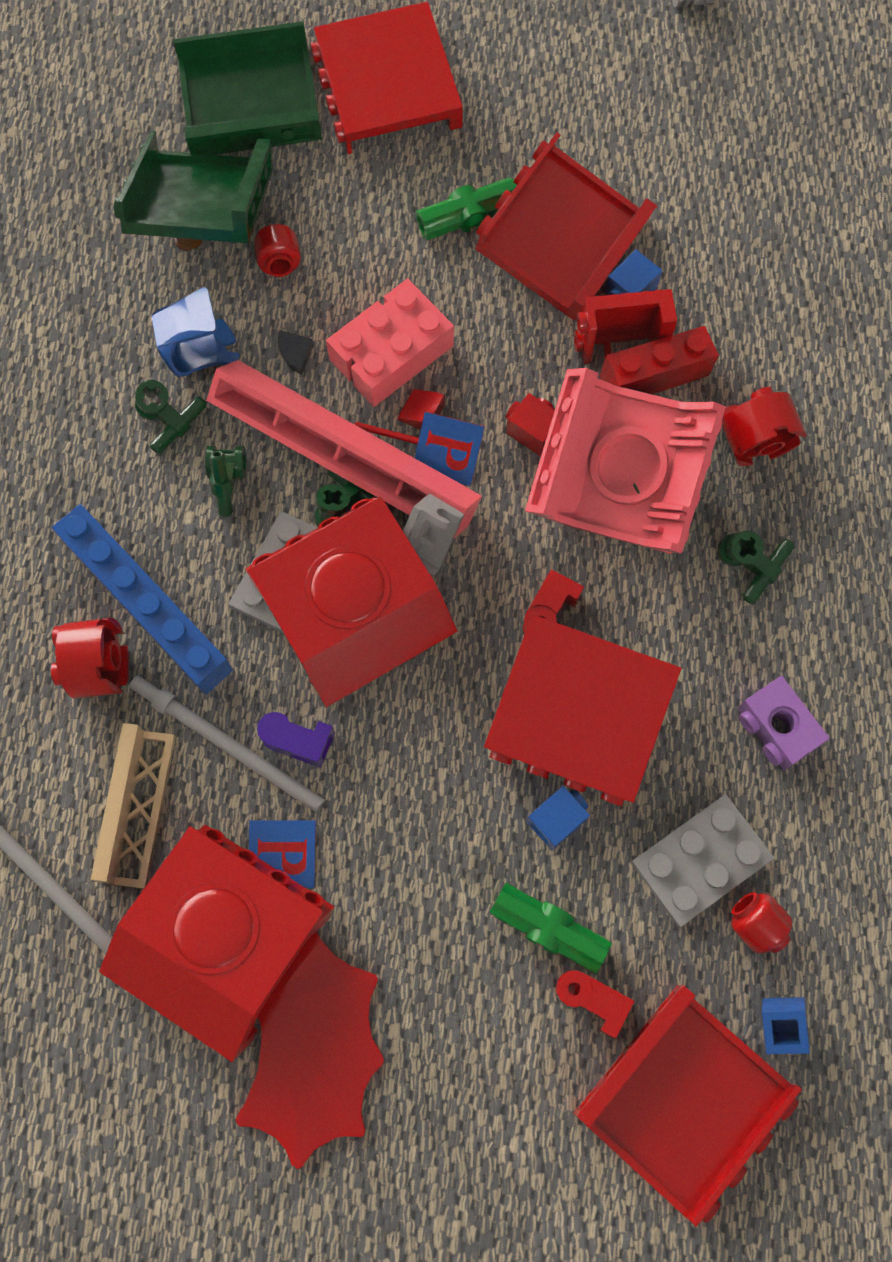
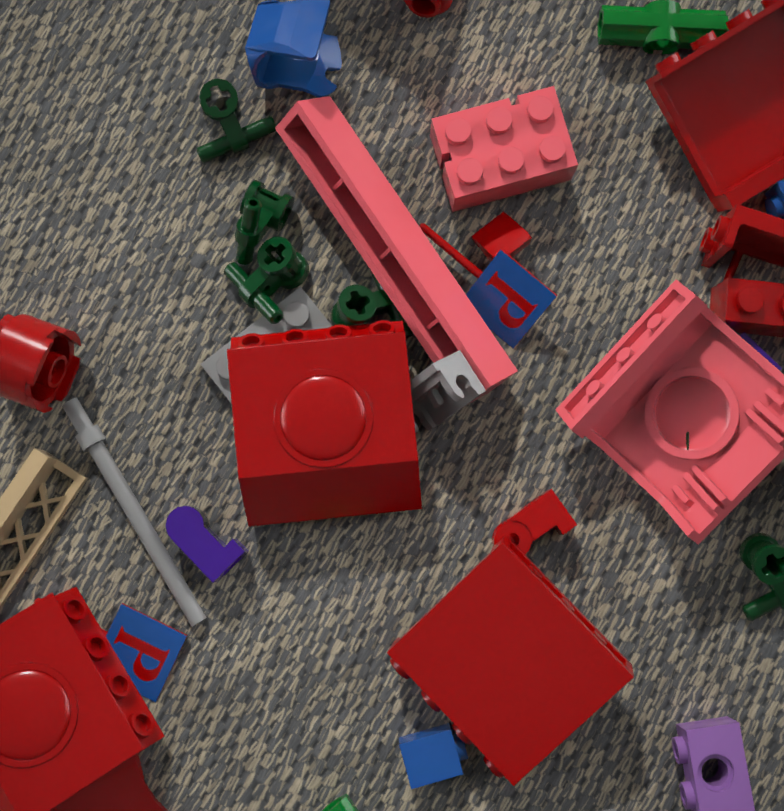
camera: 25 degrees right, 10 degrees up
(143, 599) = (113, 319): blue brick -> none
(253, 512) = (269, 276): none -> dark green piece
(294, 350) = (397, 109): black tile -> none
(530, 422) = (611, 310): red brick -> none

